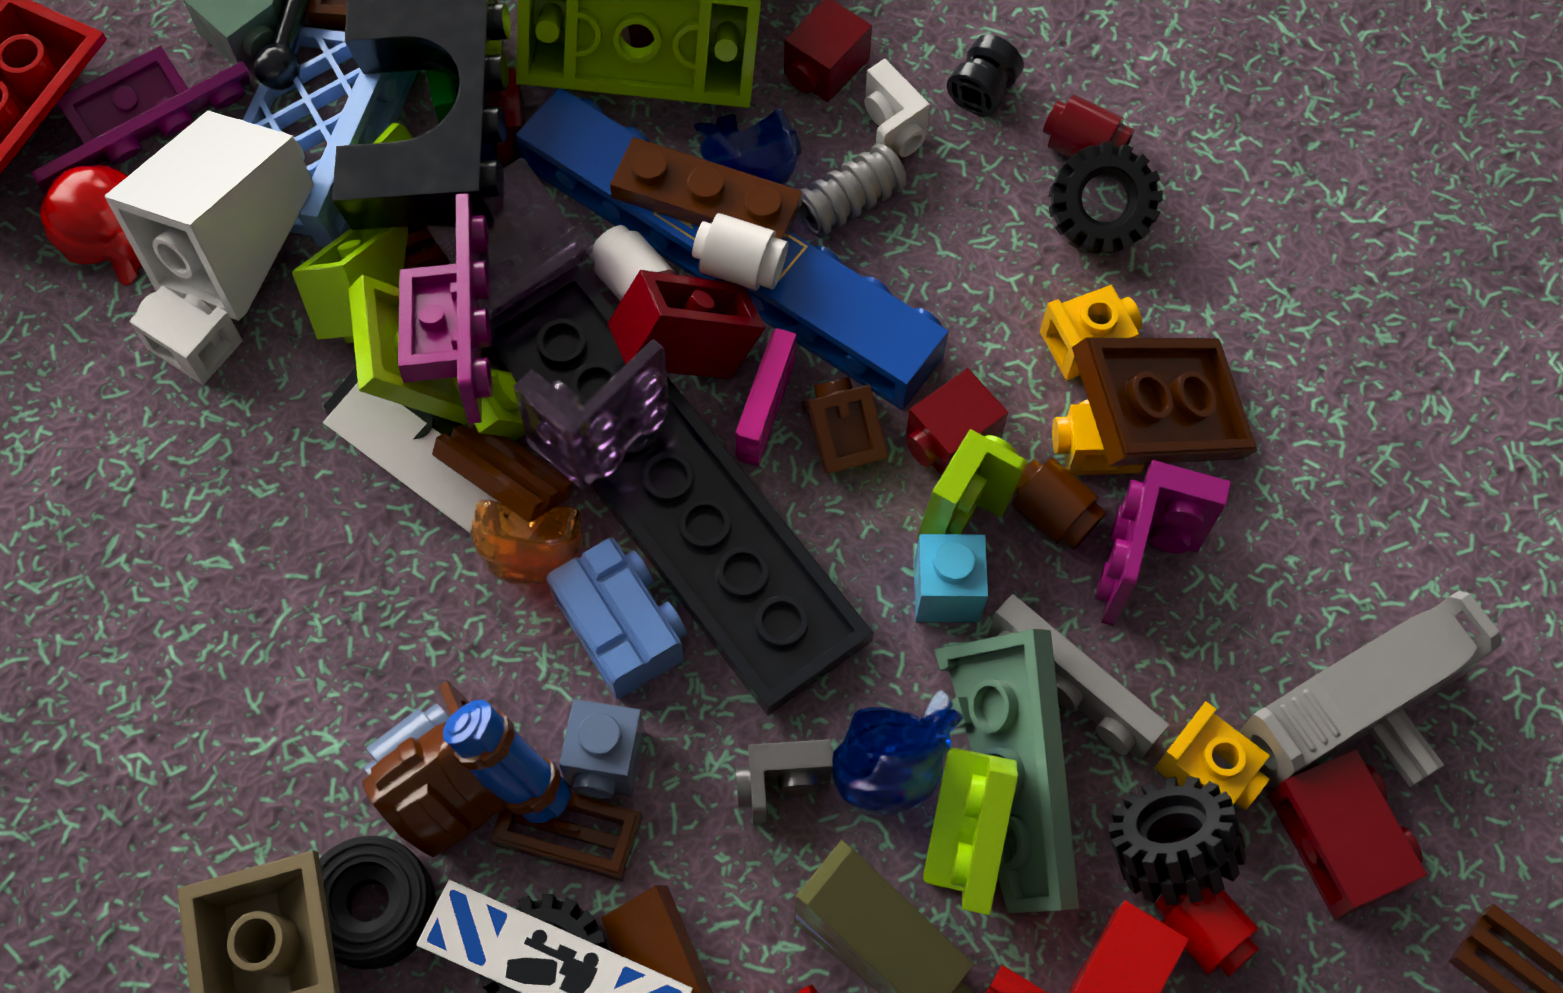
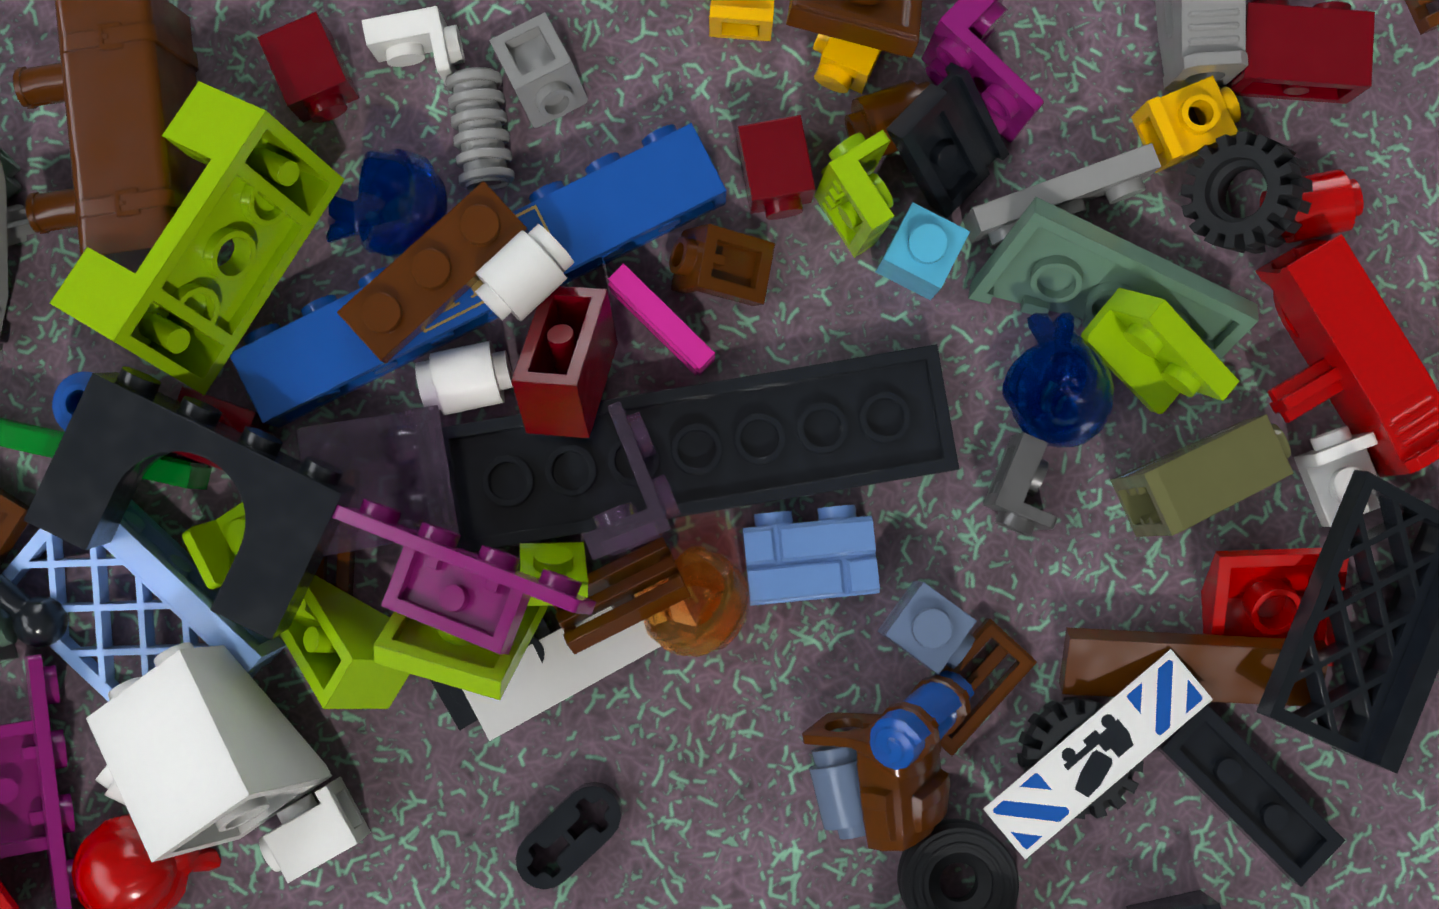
camera: 70 degrees left, 20 degrees up
(272, 526) = (579, 846): none -> black beam
(924, 210) = (539, 70): none -> light grey bracket
(1061, 546) = (948, 140): none -> black plate

